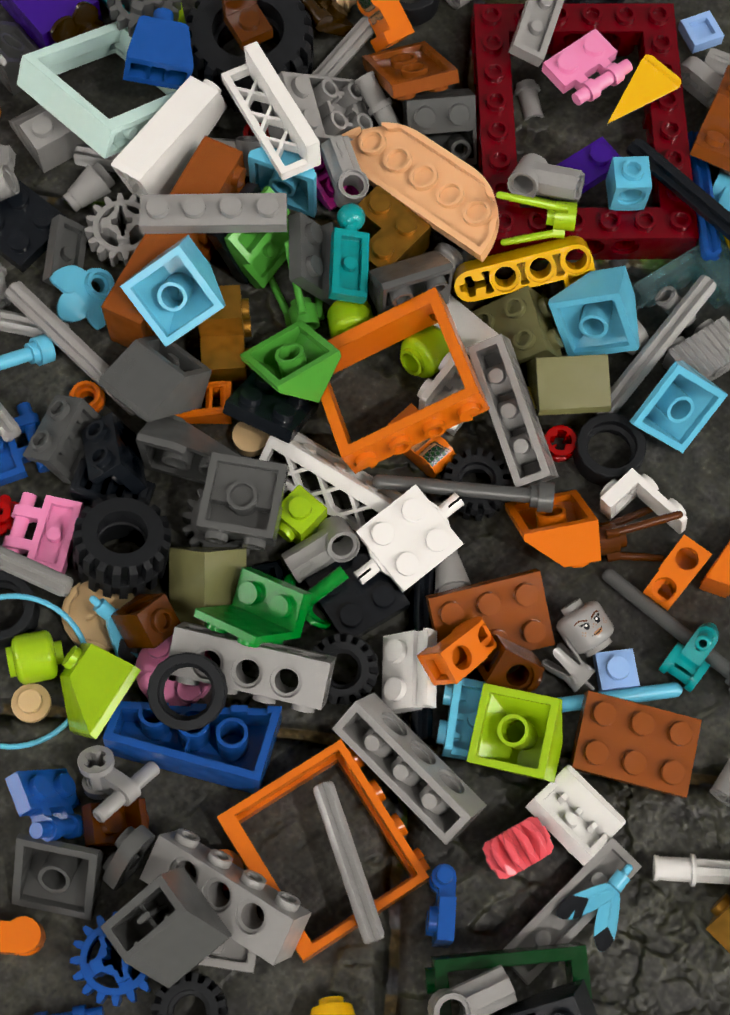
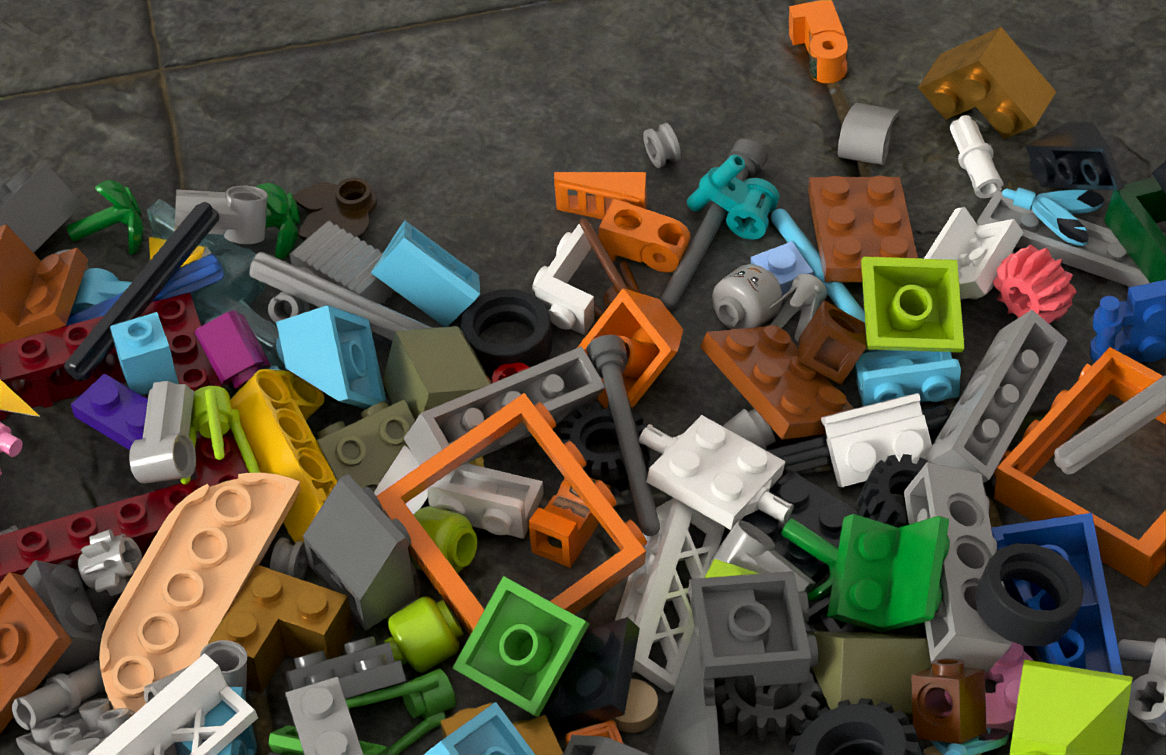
camera: 100 degrees left, 20 degrees down
(349, 256) = (343, 625): teal plate -> none
(458, 652) = (845, 369): orange leg -> none
(461, 138) = (109, 562): none -> light grey gear
(624, 243) = (232, 348): none -> magenta brick
(642, 945) = (1074, 158): none -> black slope

